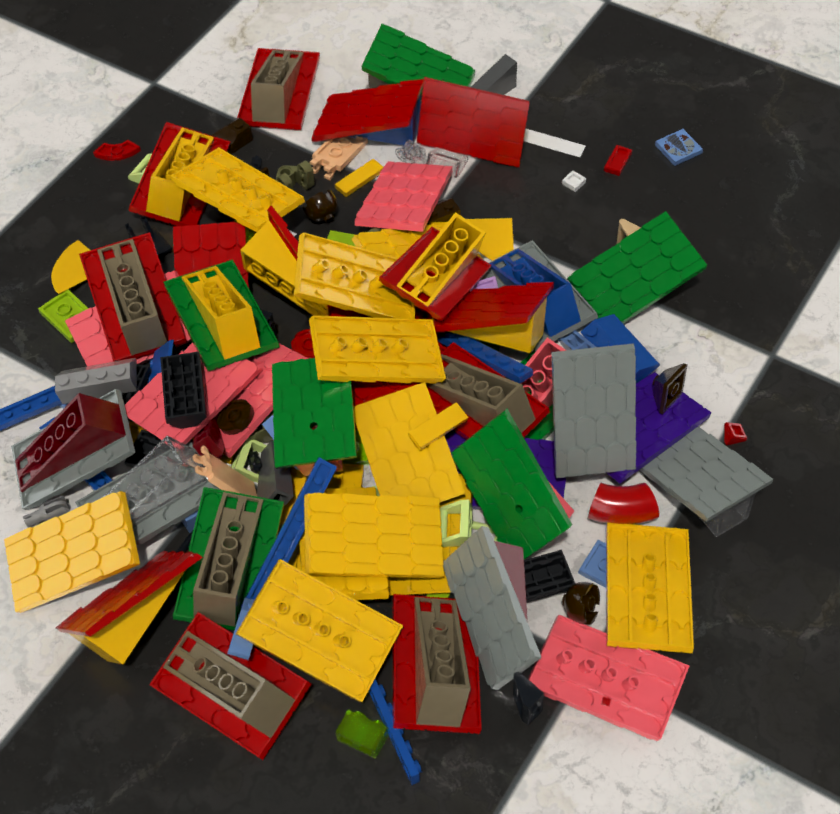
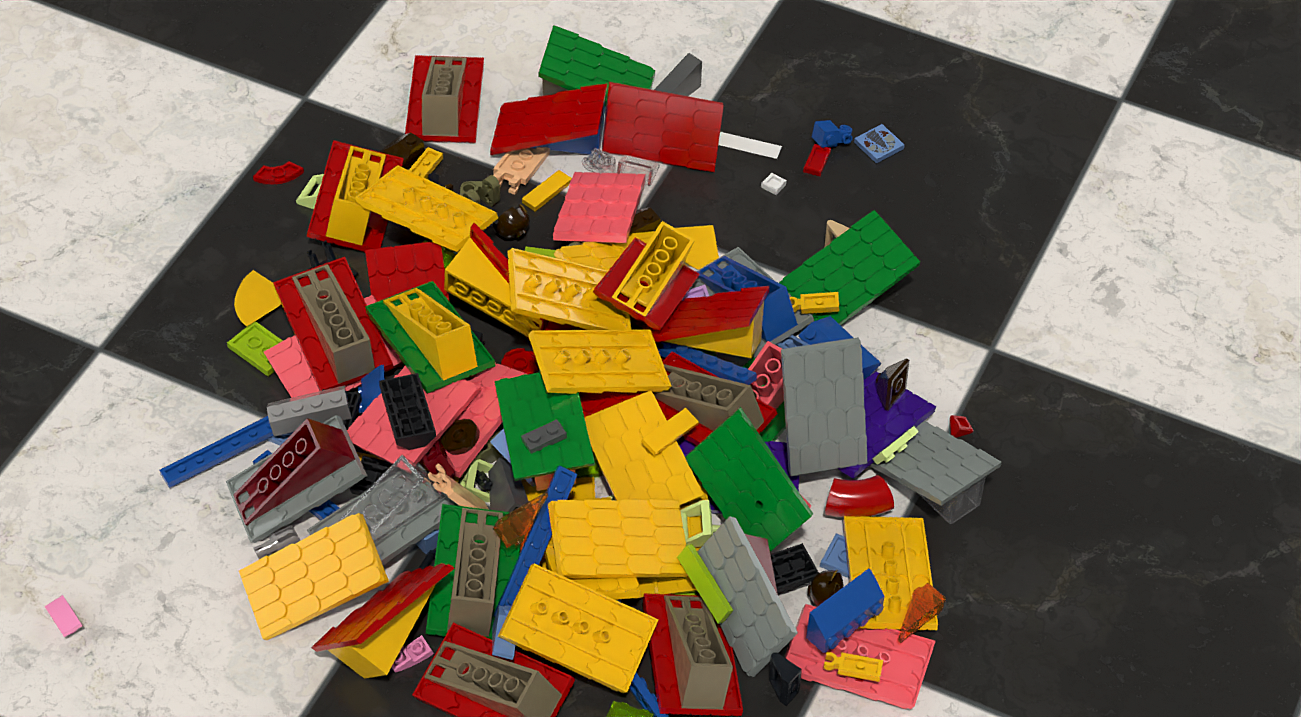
camera: 10 degrees left, 5 degrees down
(156, 639) = (412, 654): none -> bright pink slope
(251, 147) = (427, 162): none -> yellow plate
(271, 514) = (516, 524): none -> clear orange slope
(309, 425) = (544, 436): none -> dark grey plate
(455, 590) = (705, 583): none -> lime tile
(596, 631) = (845, 611): none -> blue slope
(600, 300) = (816, 303): none -> yellow plate
(602, 690) = (855, 666): none -> yellow plate
(631, 137) = (828, 135): none -> blue brick
(668, 452) = (899, 445): none -> yellowish green plate
(680, 628) = (924, 606): none -> clear orange slope

